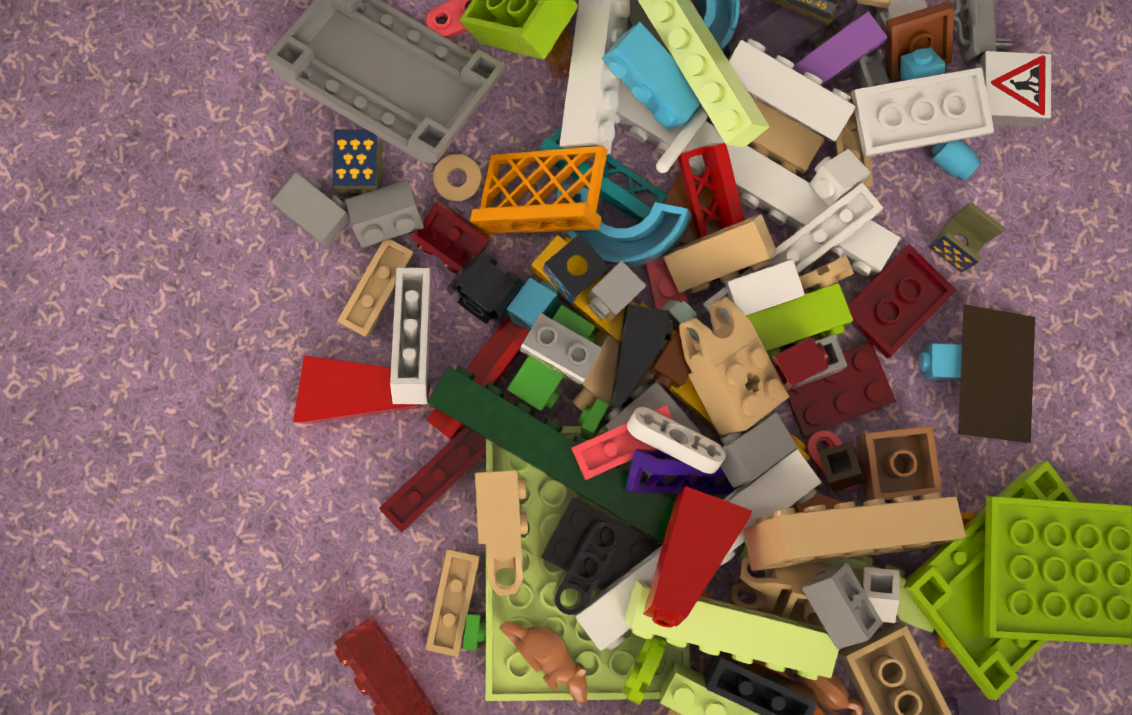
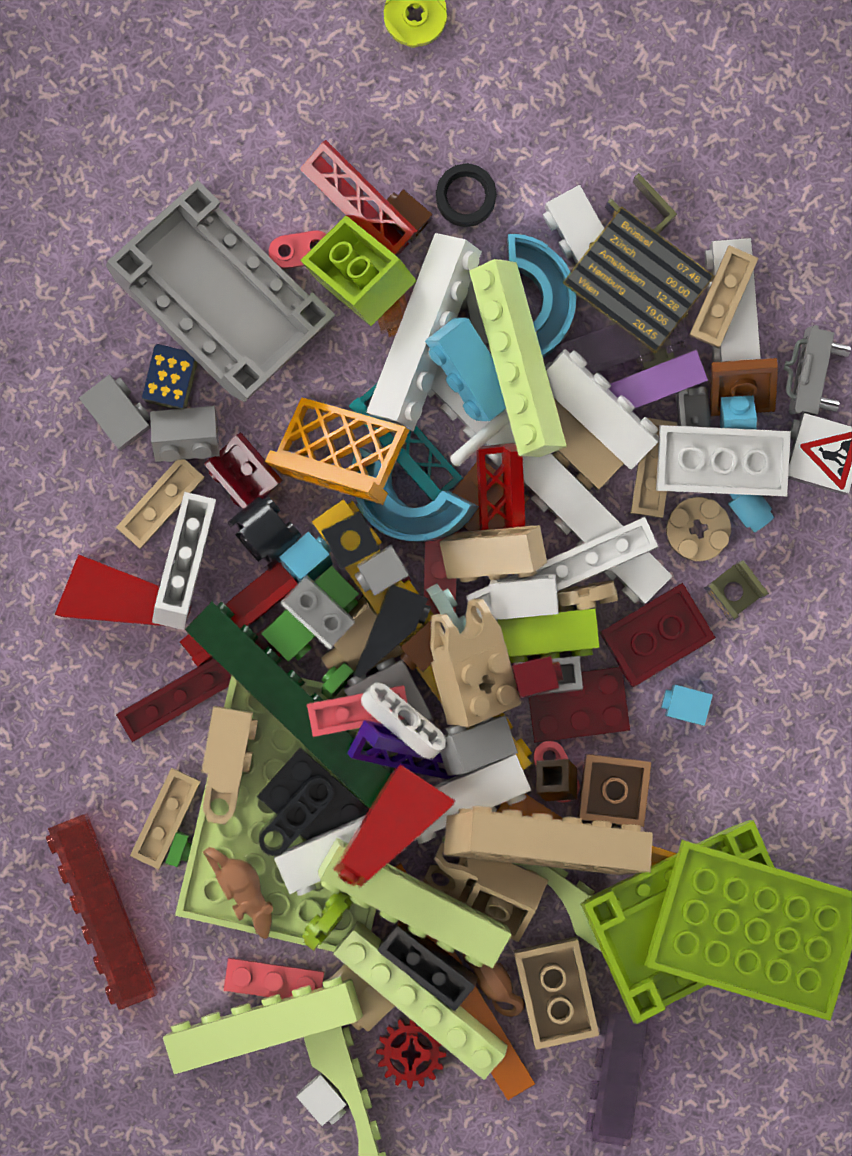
camera: 15 degrees right, 5 degrees up
(450, 164) = (269, 427): tan piece -> none
(838, 176) = (625, 504): white brick -> none
(842, 606) = (517, 905): light grey hinge -> none
(883, 591) = (558, 905): white brick -> none
(914, 173) = (688, 544): none -> tan plate
(996, 374) = (731, 727): dark brown sticker -> none

